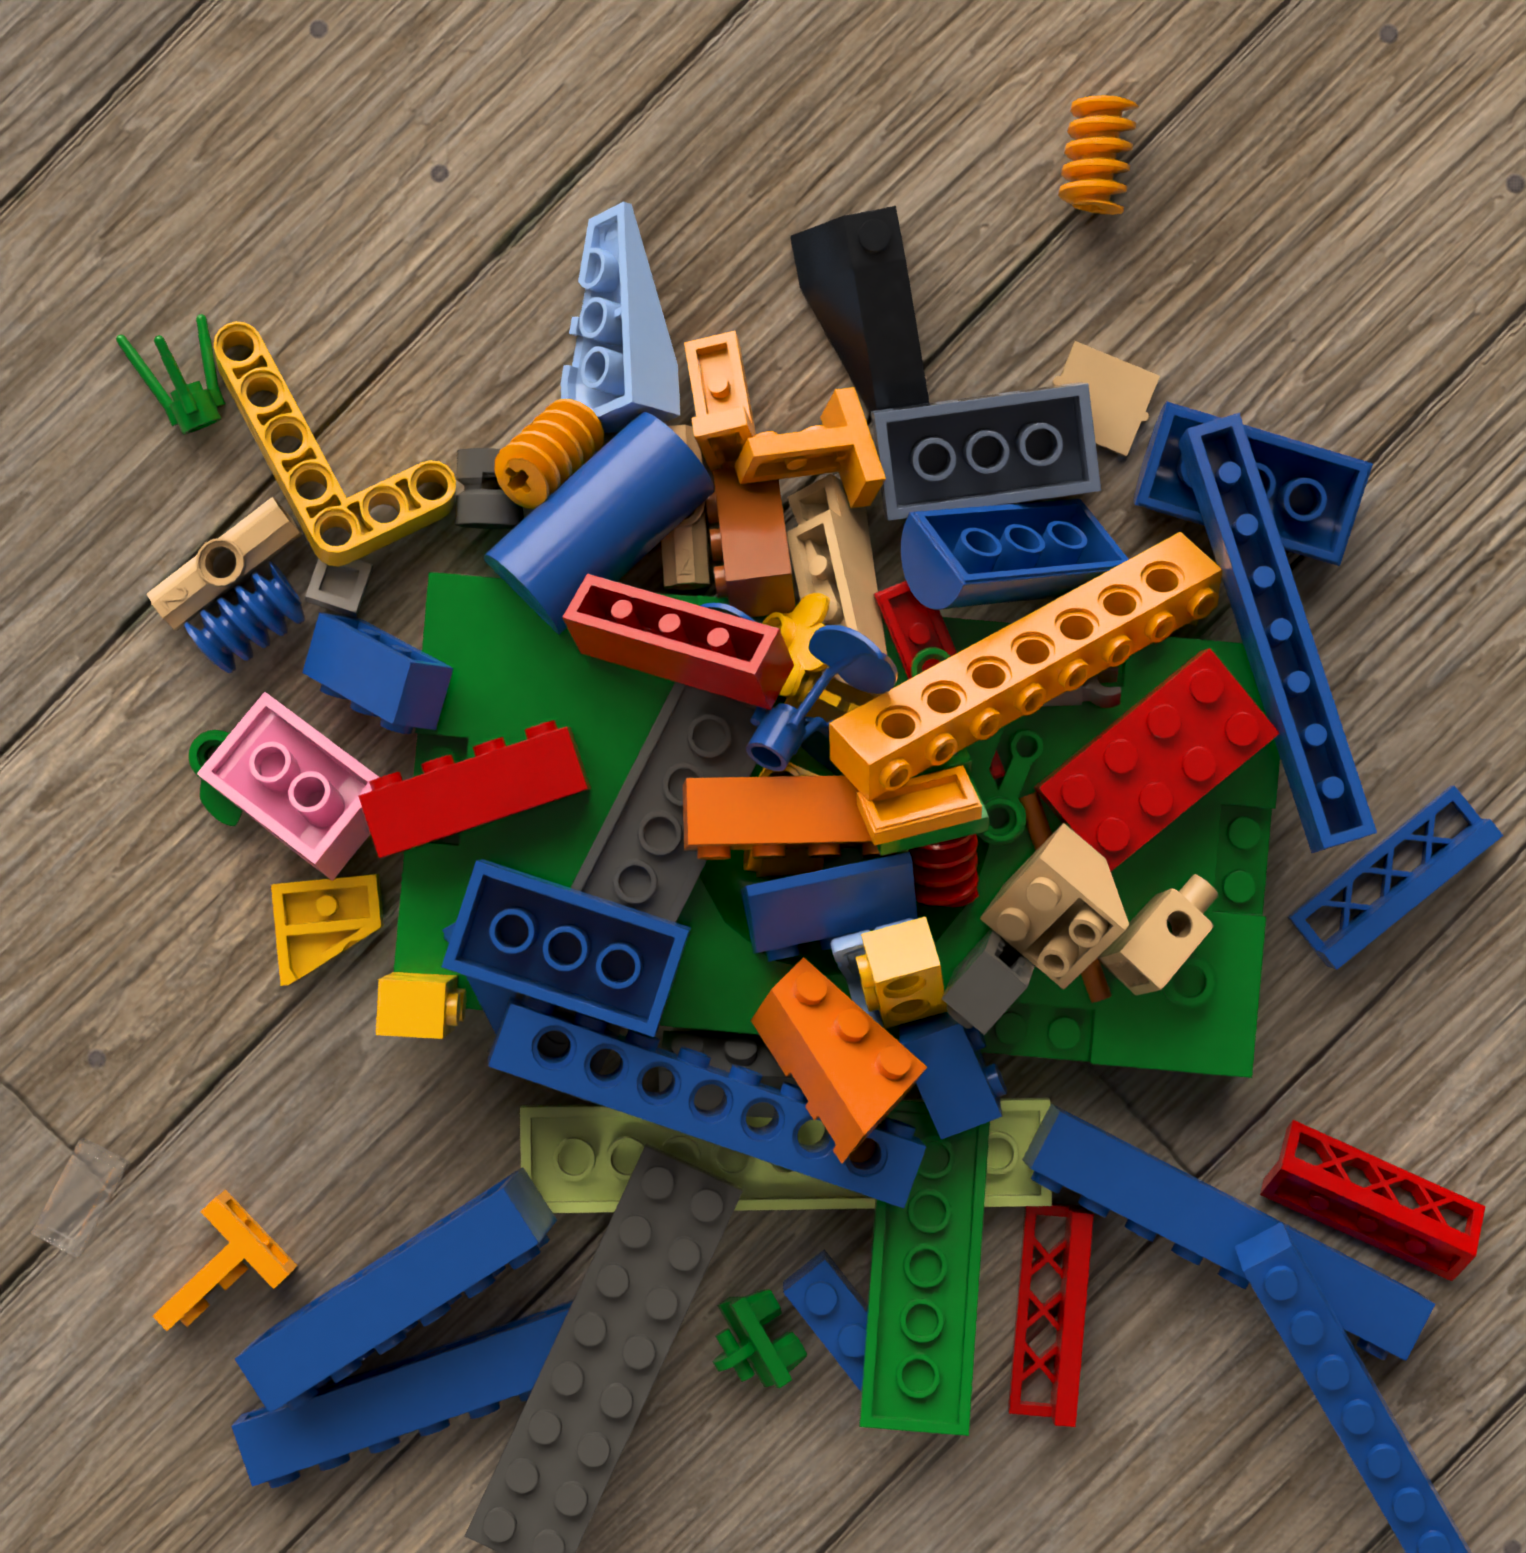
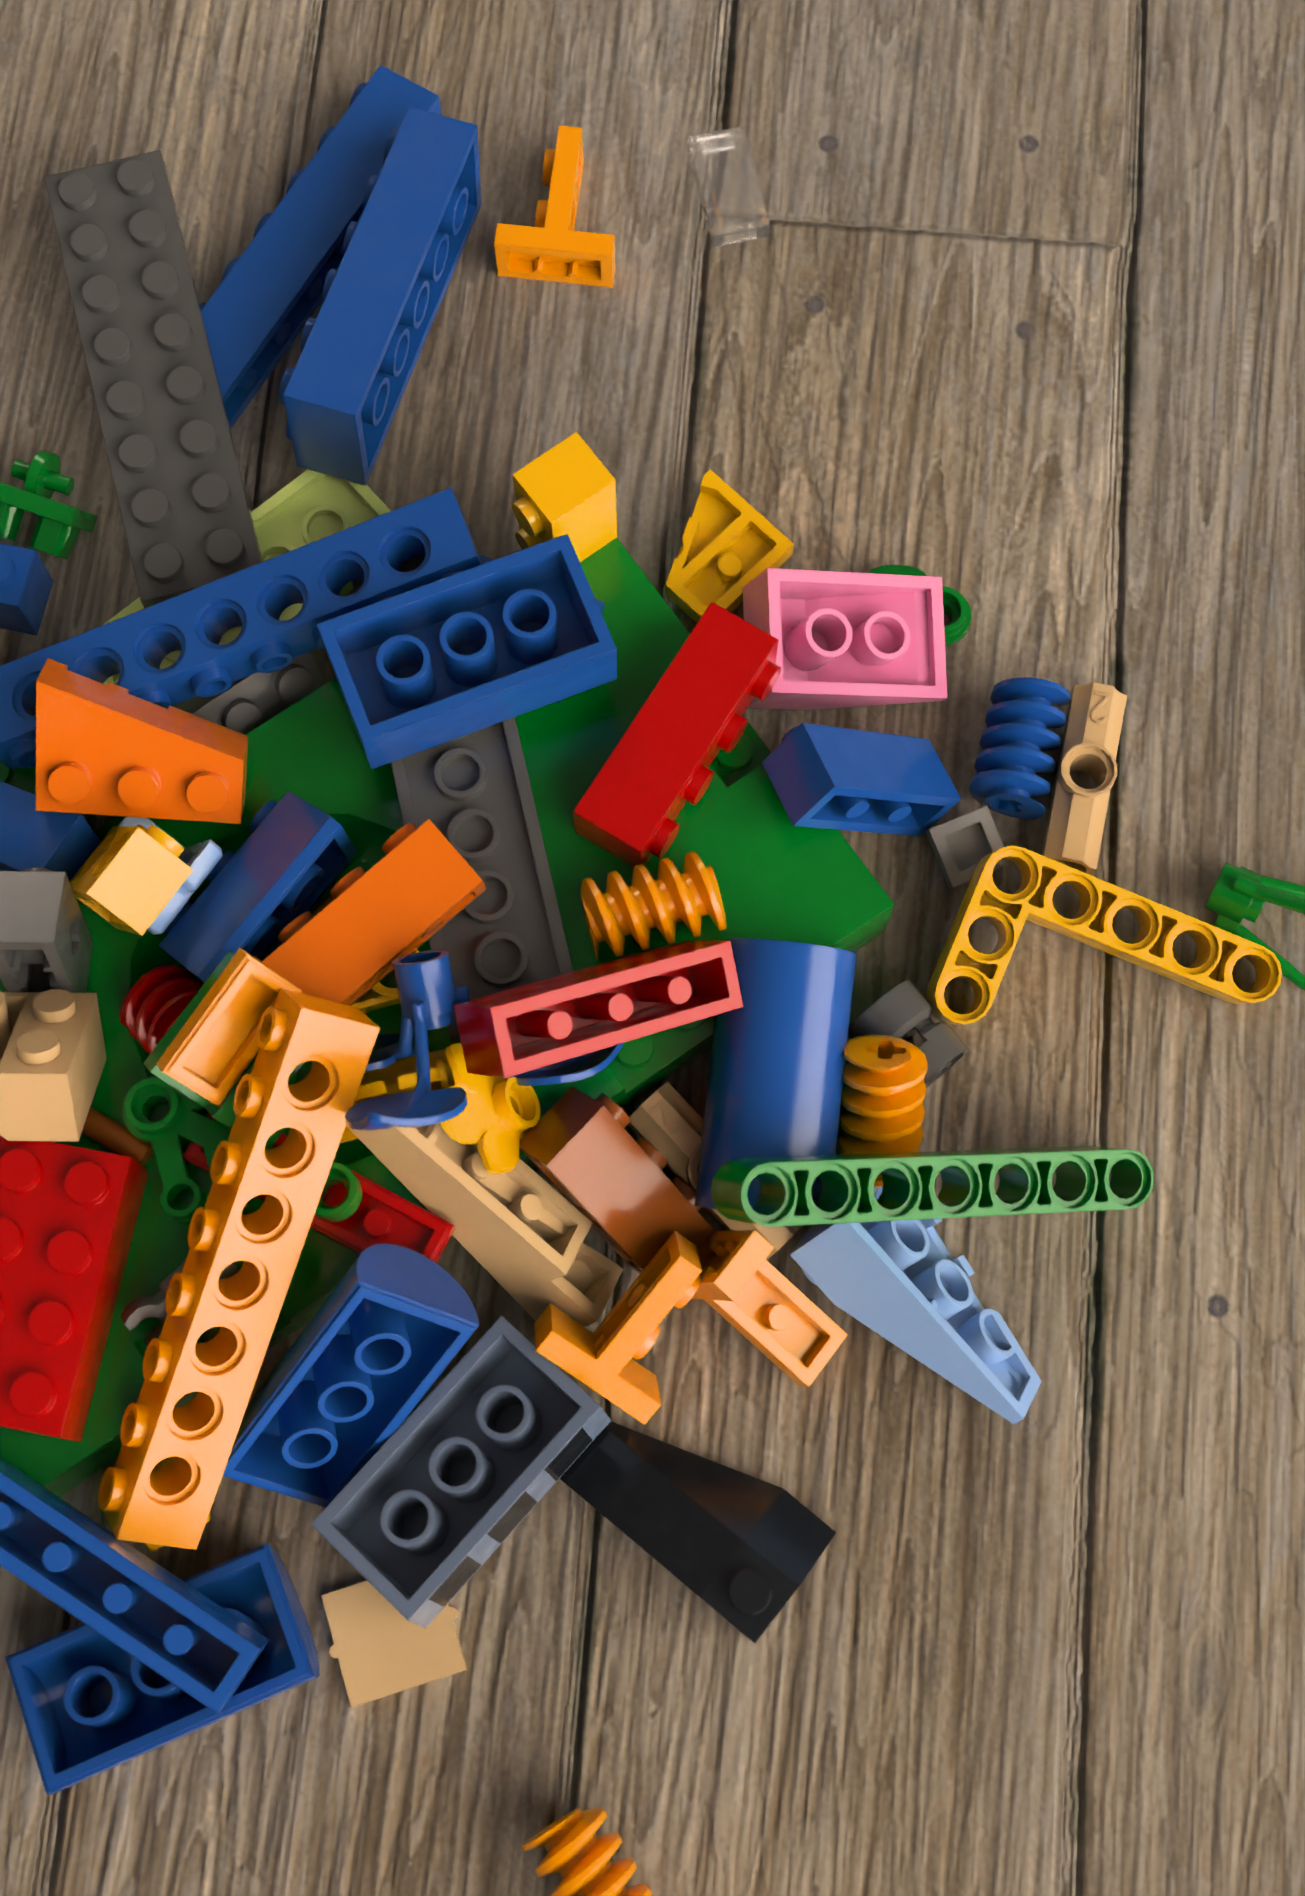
camera: 140 degrees right, 15 degrees down
(494, 331) = (910, 1183): none -> green beam
(586, 691) = (651, 904): none -> light orange piece

